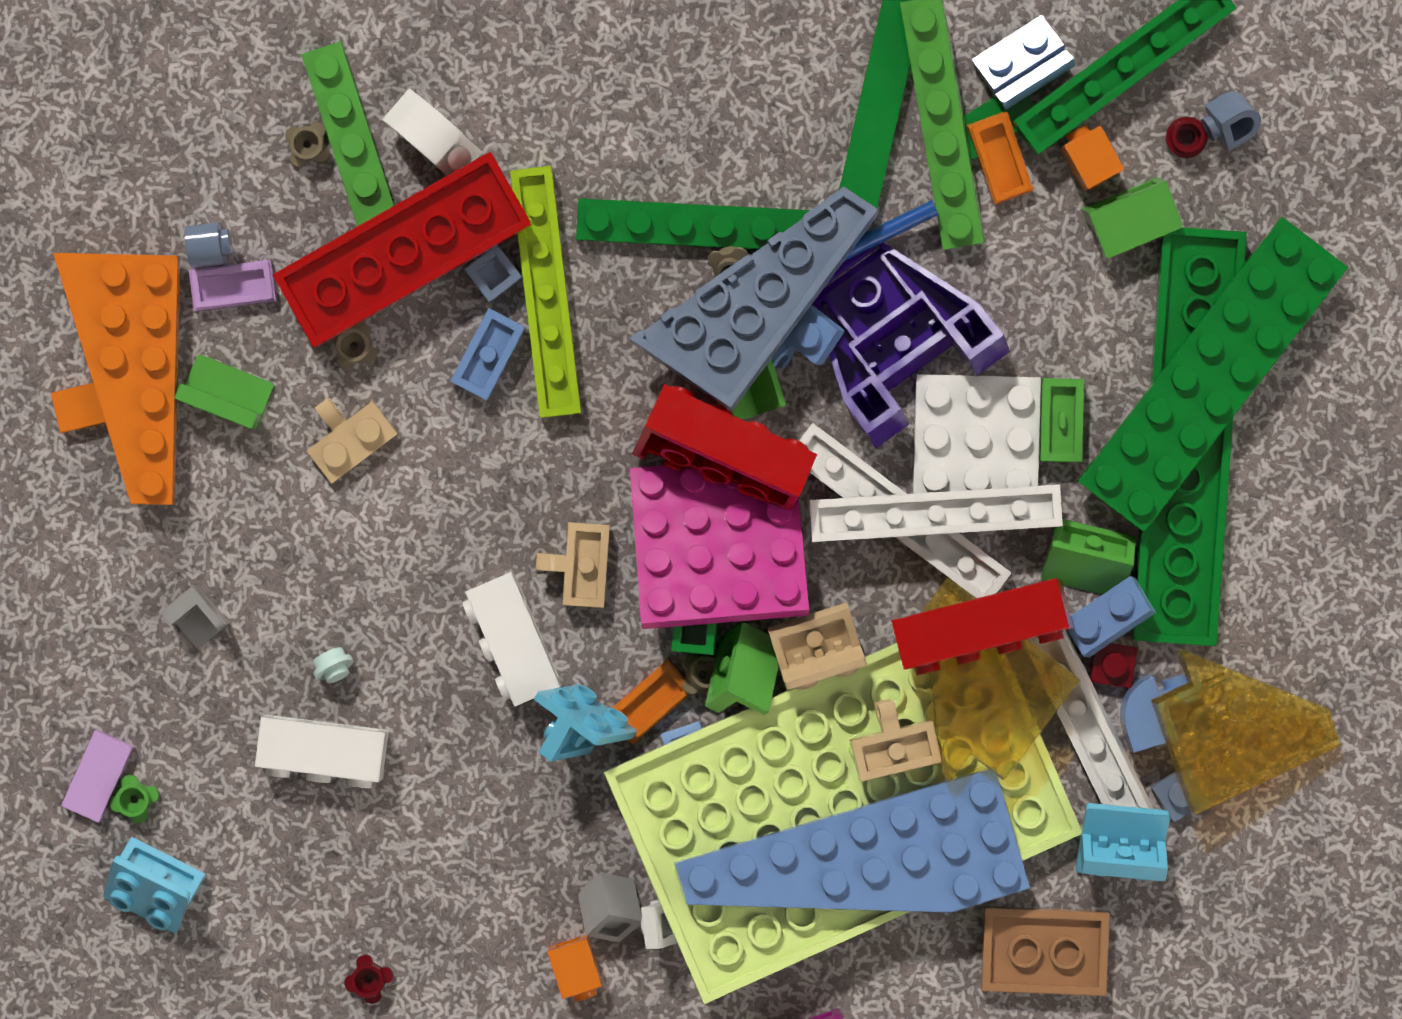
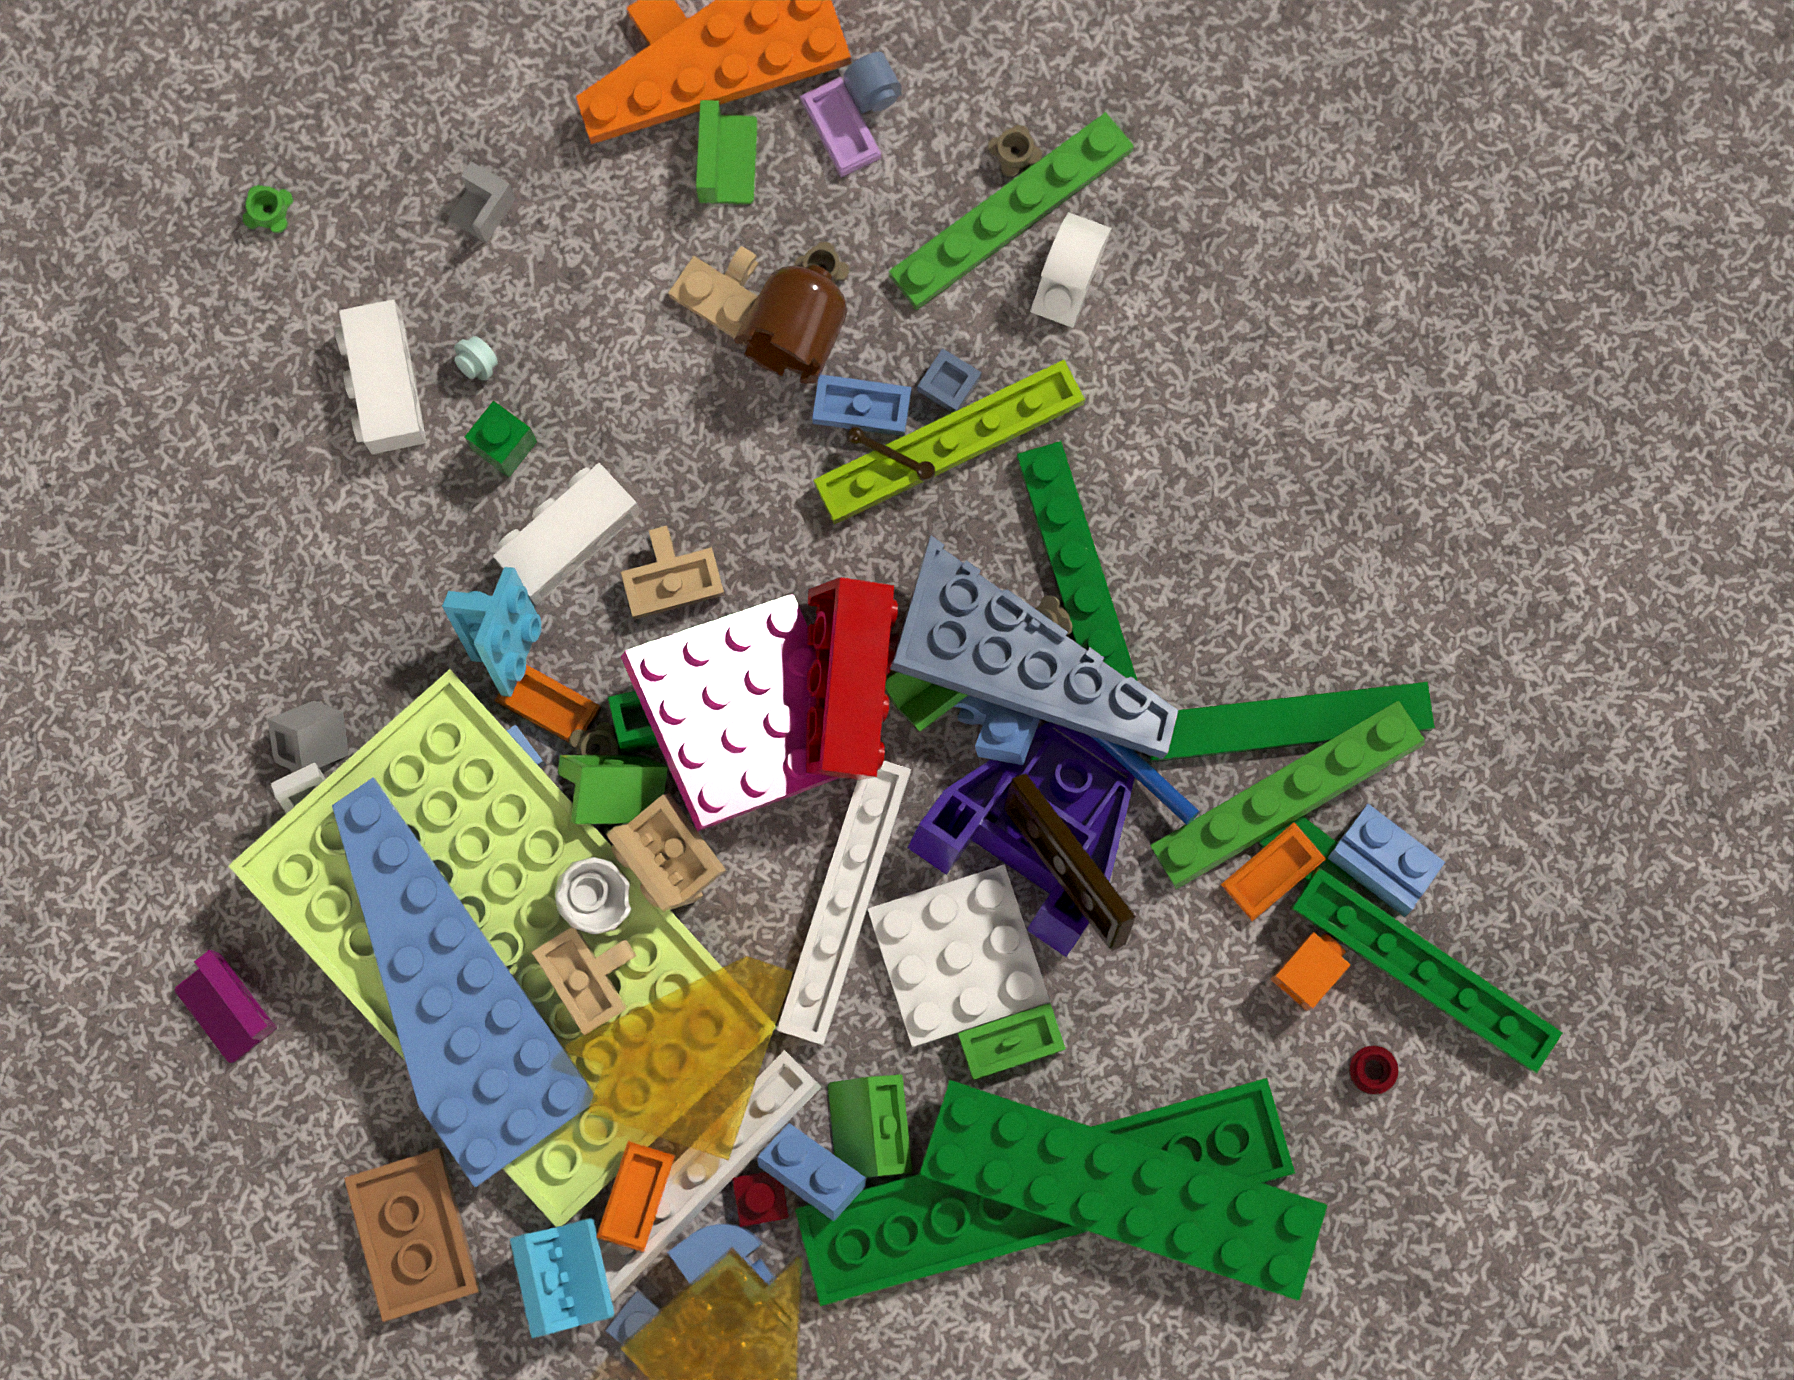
camera: 70 degrees right, 10 degrees down
(97, 776) = (280, 164): lavender tile -> none
(152, 885) = (181, 254): medium azure bracket -> none
(357, 983) = (141, 501): dark red plate -> none
(399, 385) = (794, 322): none -> reddish brown cylinder
(402, 249) = (940, 275): red plate -> none
(412, 666) = (501, 439): none -> green brick
(566, 322) = (925, 469): none -> dark brown hinge
(575, 968) = (229, 722): orange brick -> none
(834, 717) = (593, 895): none -> white hair
(935, 513) = (859, 935): white plate -> none
(942, 323) = (1069, 862): none -> dark brown tile
(982, 625) = (753, 1025): red wedge -> none
(1081, 763) = (635, 1197): none -> orange tile
(1133, 217) = (1263, 1040): bright green panel -> none
(1231, 120) = (1412, 1110): sand blue plate -> none

